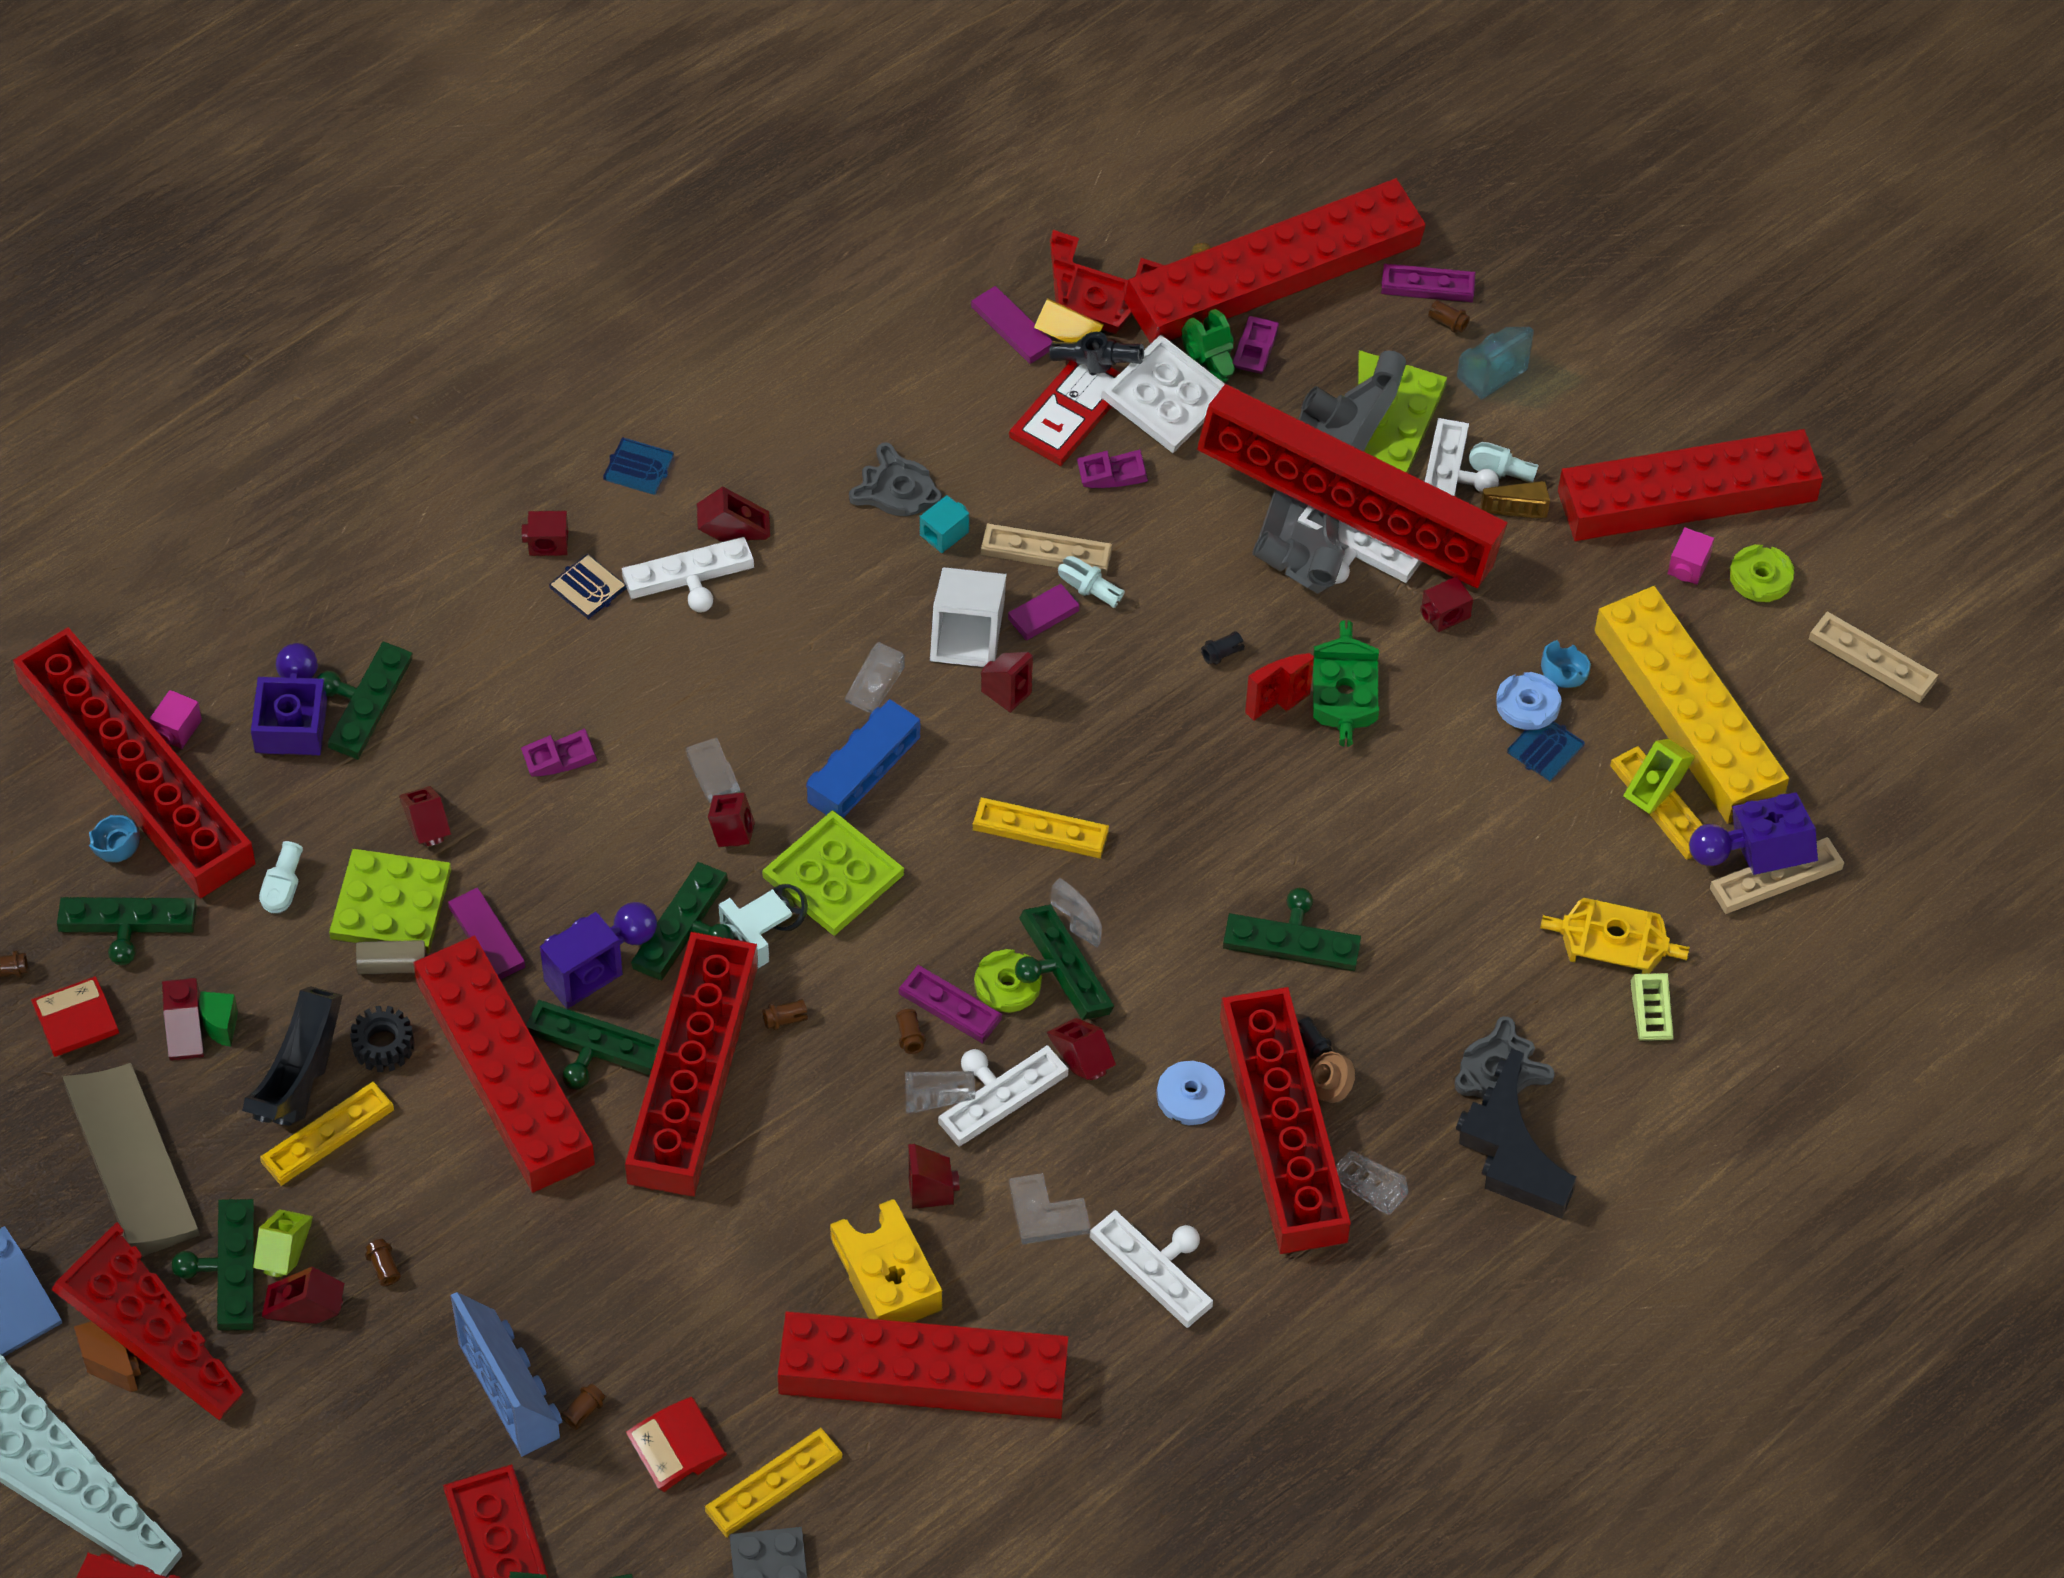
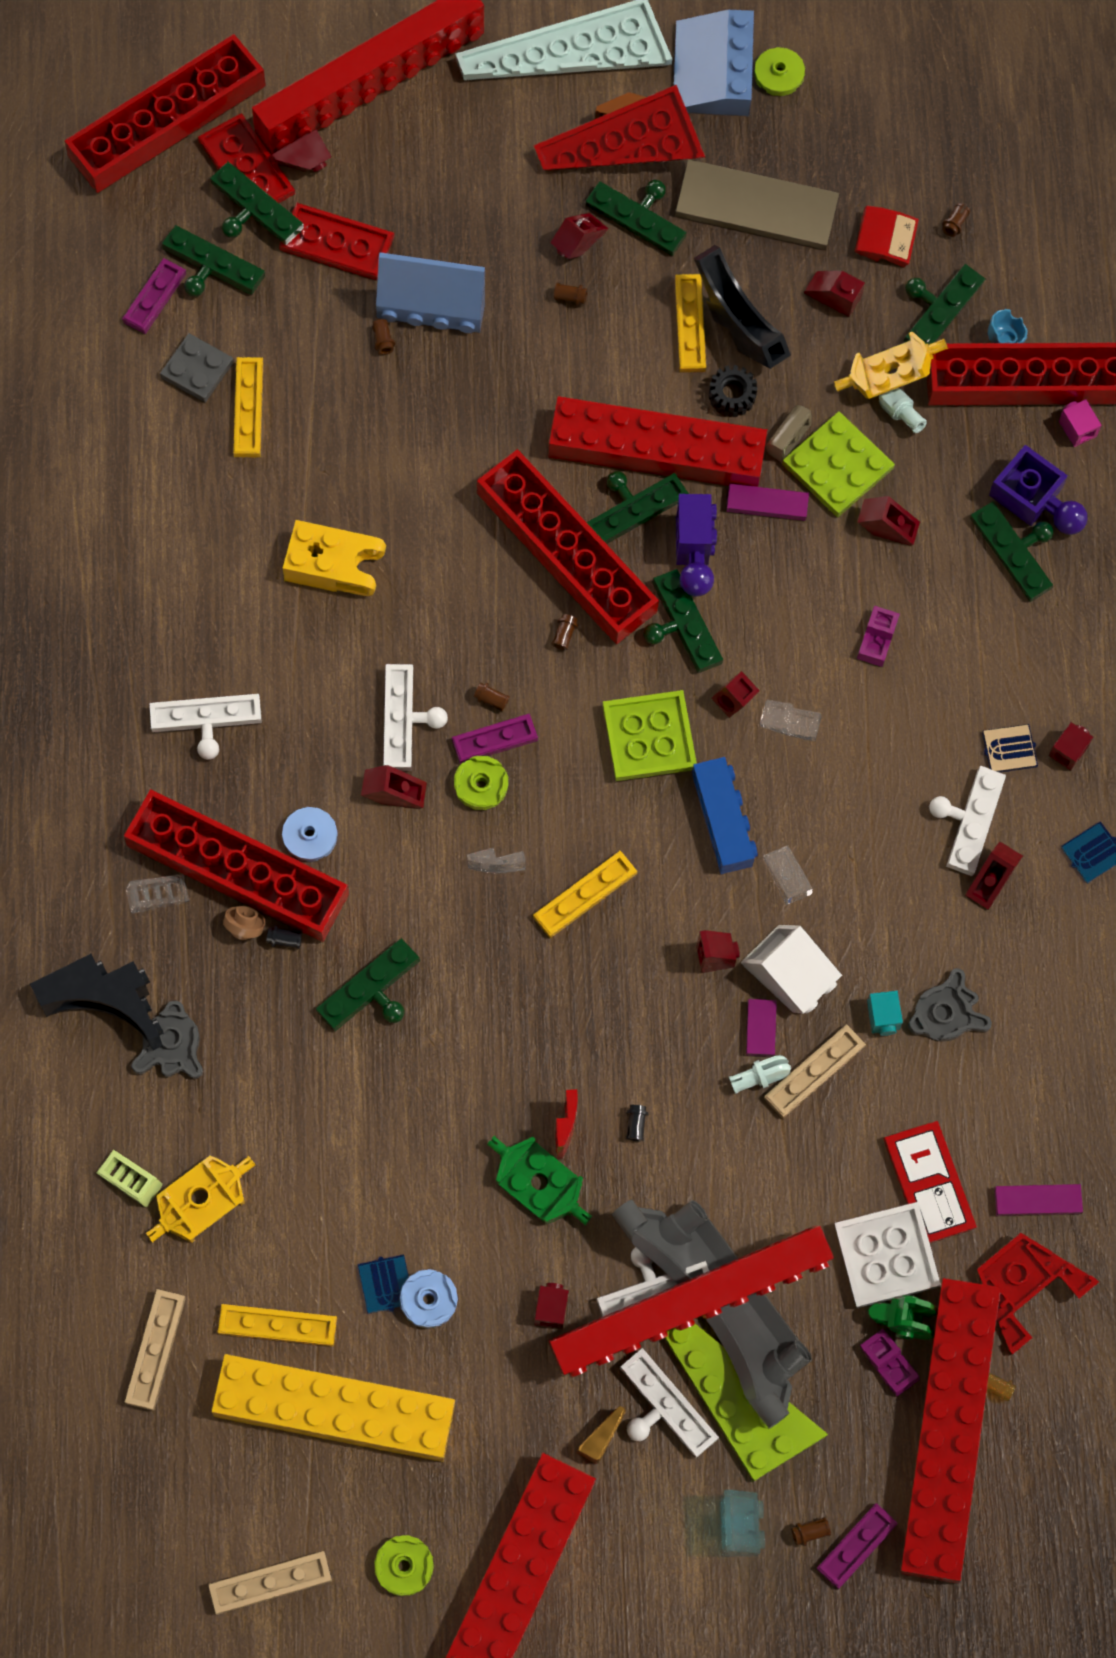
camera: 125 degrees right, 15 degrees up
(218, 895) = (872, 373): none -> yellow plate
(219, 1016) = (821, 309): green brick -> none
(281, 1242) = (629, 247): lime slope -> none
(676, 1443) = (315, 369): red slope -> none
(761, 916) = (644, 663): light aqua piece -> none
(923, 1365) = (248, 533): red brick -> none
(928, 1089) = (445, 663): clear slope -> none
(930, 1178) = (370, 623): dark red slope -> none
(1042, 1220) = (299, 678): clear tile -> none
(1064, 322) = (1001, 1230): yellow tile -> none
(1064, 961) = (465, 825): dark green plate -> none
(1096, 352) = (947, 1231): black pin -> none
(1105, 471) = (850, 1169): magenta slope -> none
(1500, 460) = (644, 1453): light aqua arm -> none
(1565, 665) = (434, 1346): dark azure hair -> none
(1658, 774) = (290, 1328): lime slope -> none
(1690, 556) = (456, 1521): dark pink brick -> none
(1768, 831) = (197, 1357): dark purple brick -> none

